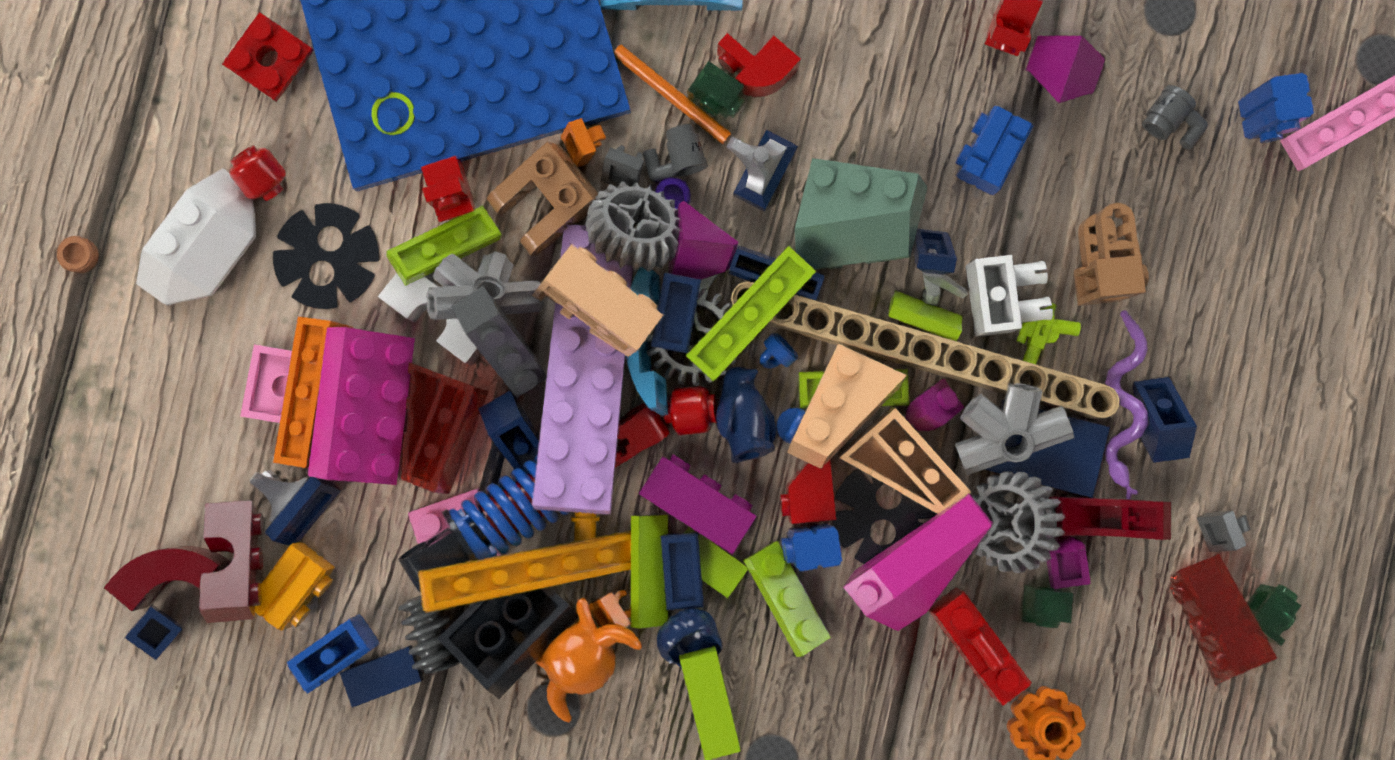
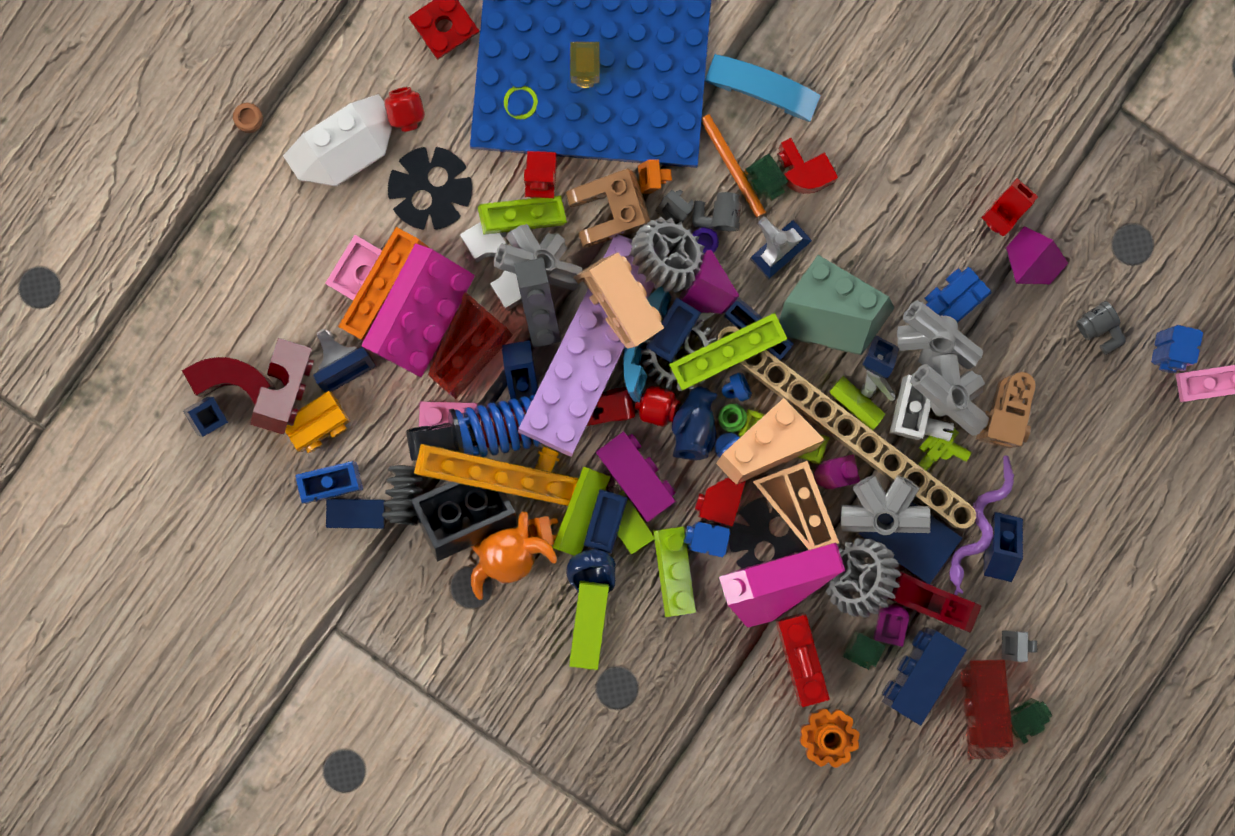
camera: 20 degrees right, 0 degrees up
(449, 37) = (585, 63): none -> clear yellow brick
(776, 384) = (725, 414): none -> bright green plate
(990, 204) = (935, 336): none -> light grey piece
(1036, 259) = (952, 393): none -> light grey piece
(1131, 612) = (923, 675): none -> dark blue brick

